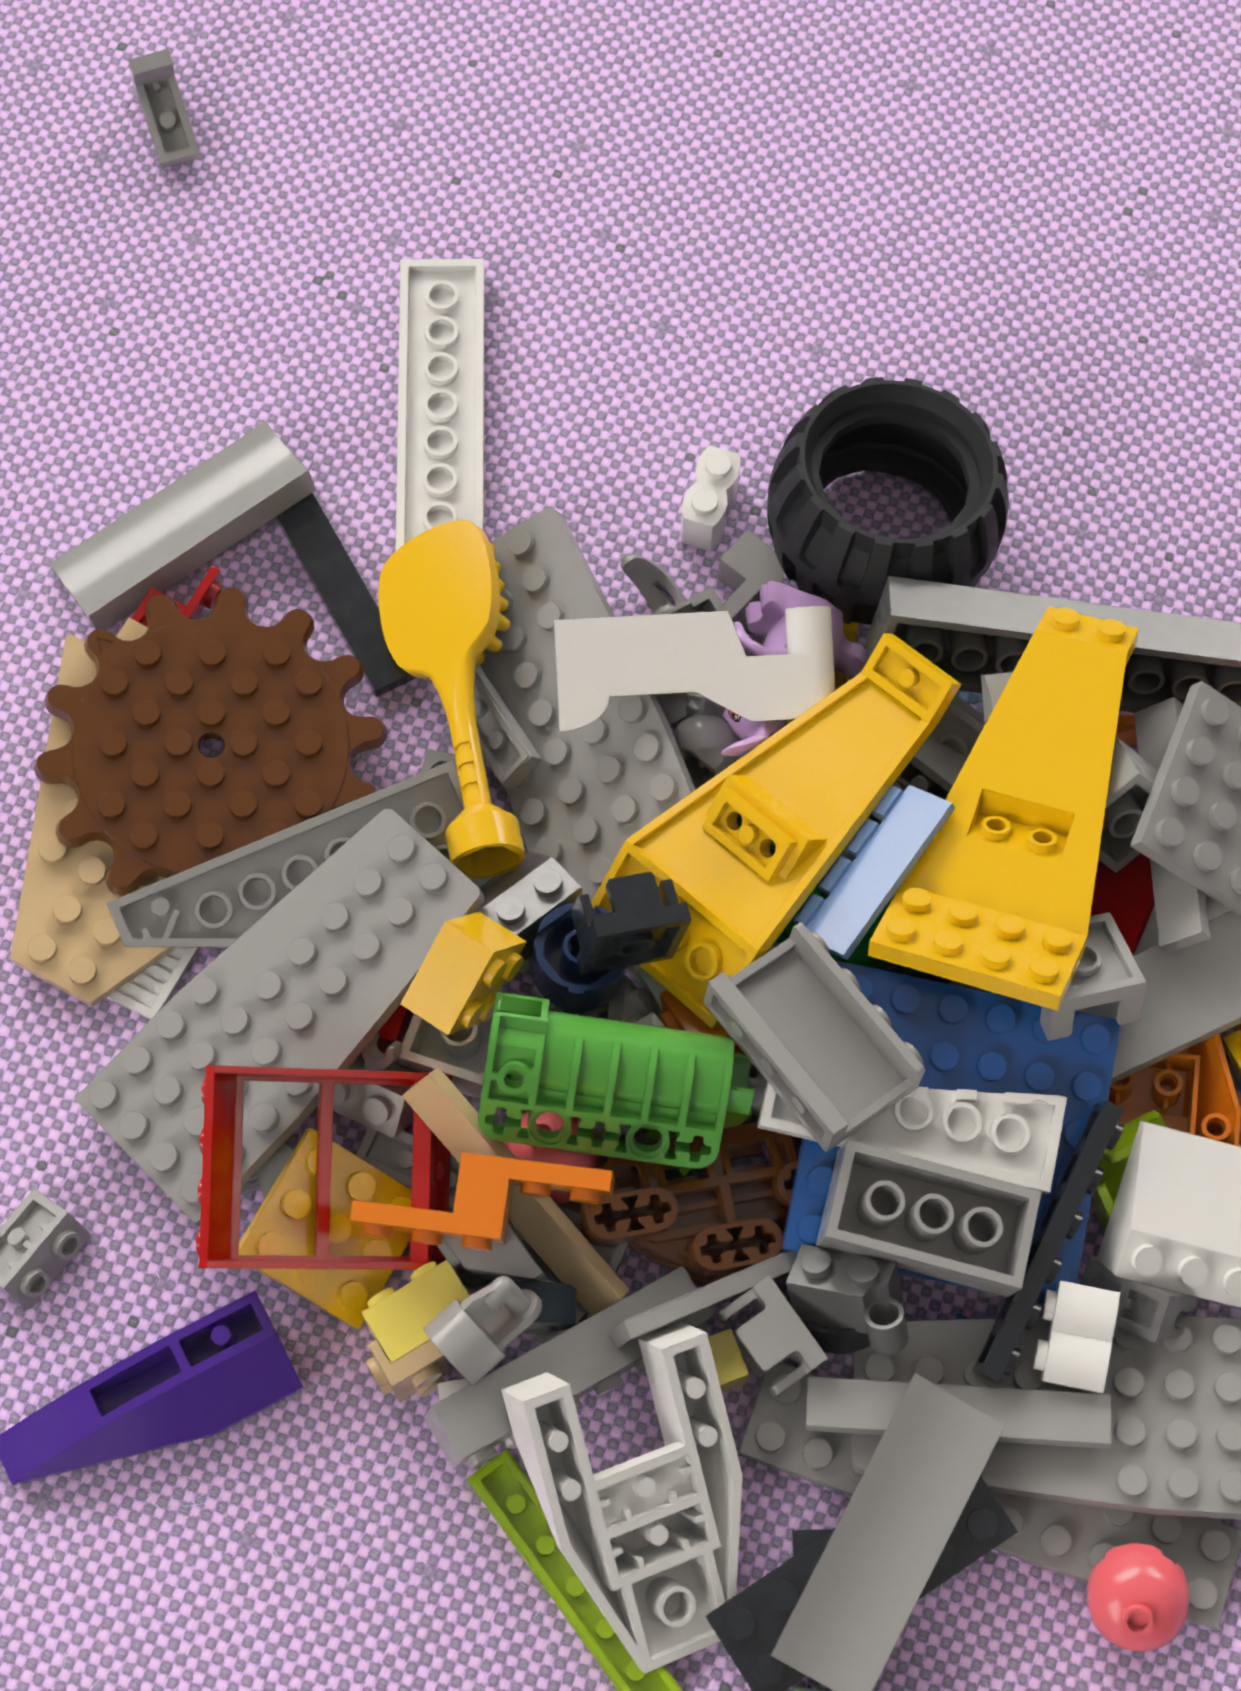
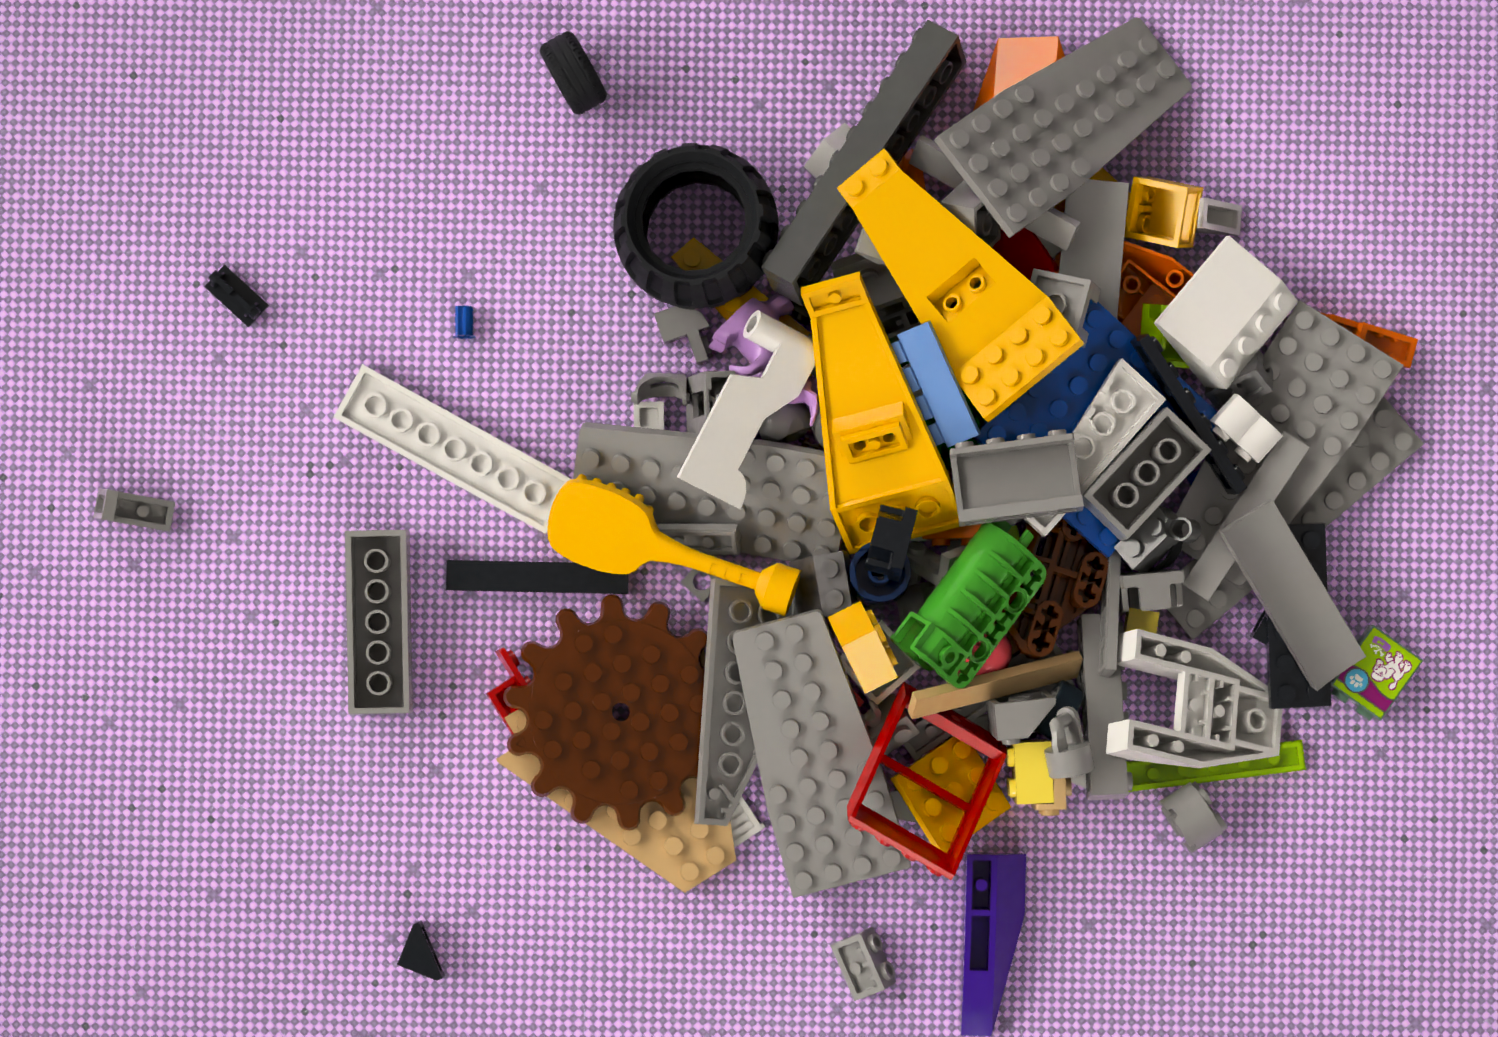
camera: 50 degrees left, 20 degrees up
(172, 424) = (378, 621): none -> light grey brick
(183, 526) = (450, 652): light grey arch -> none
(481, 1590) = (1192, 816): none -> light grey brick
(483, 1201) = (1003, 709): orange bracket -> none
(484, 99) = (236, 295): none -> black hinge
(602, 343) = (464, 322): none -> blue piece
(622, 595) = (649, 415): none -> white plate
(710, 498) = (608, 314): white brick -> none
(978, 291) = (573, 72): none -> black tyre
(1138, 1597) = (1388, 478): coral cylinder -> none

